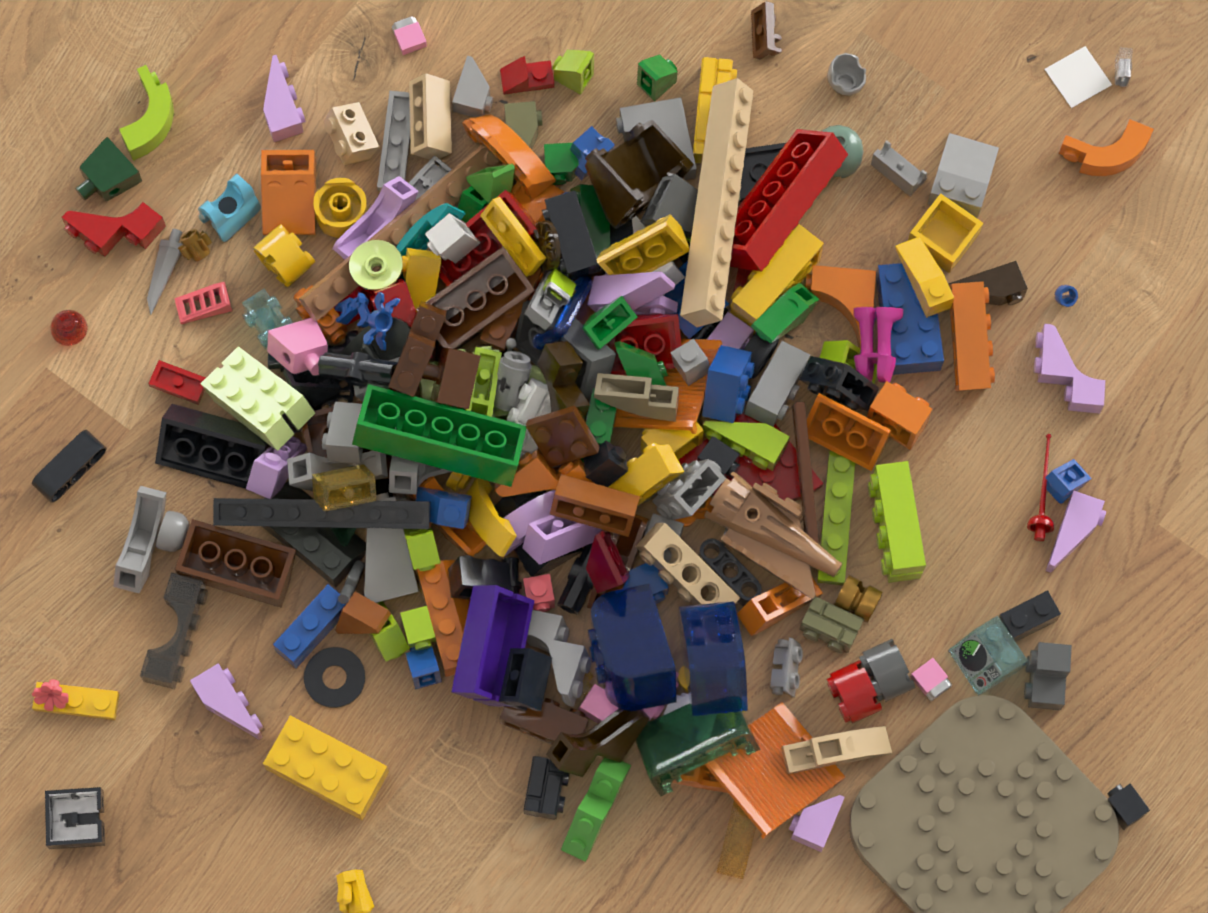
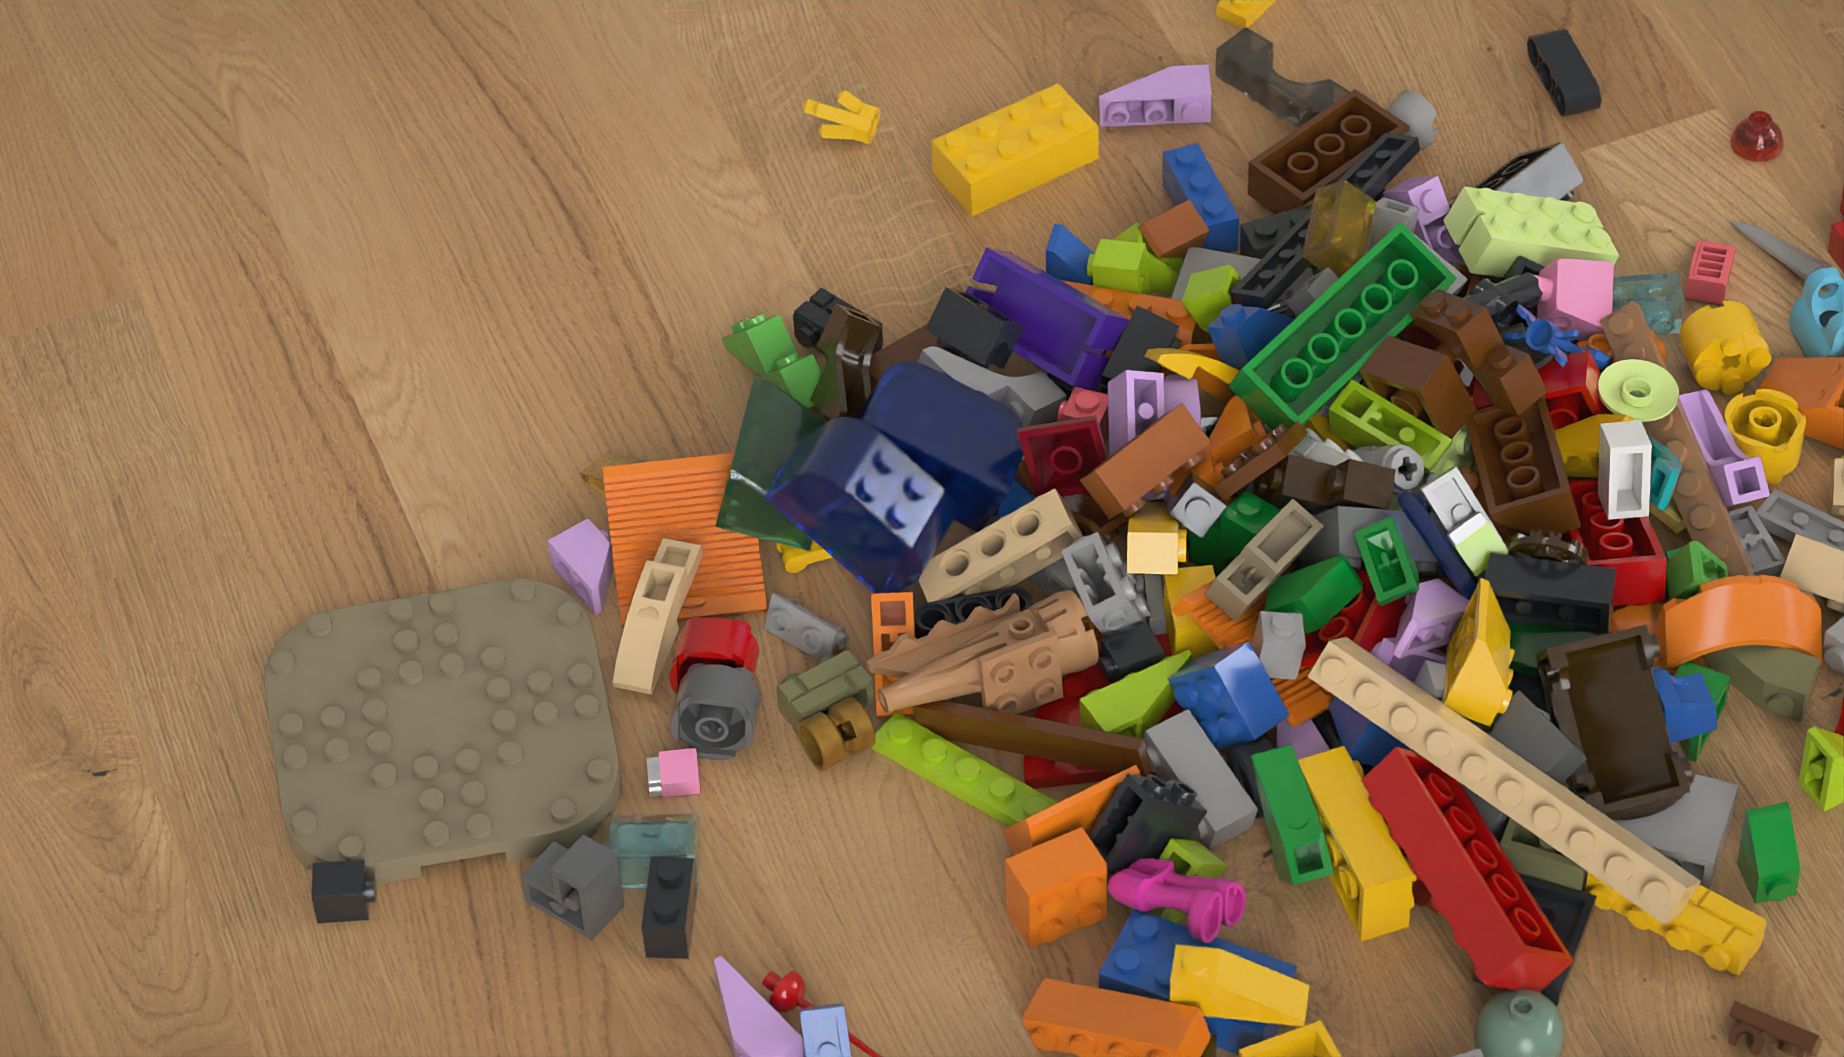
camera: 125 degrees right, 25 degrees down
(135, 560) = (1391, 71): light grey arch -> none
(177, 382) = (1620, 201): red plate -> none
(195, 245) = (1792, 278): pearl gold gear -> none
(334, 697) = (1101, 200): black gear -> none
(351, 582) = (1220, 238): dark grey piece -> none
(513, 236) = (1589, 532): yellow plate -> none
(843, 290) = (1292, 928): orange arch -> none
(897, 521) = (905, 814): lime piece -> none

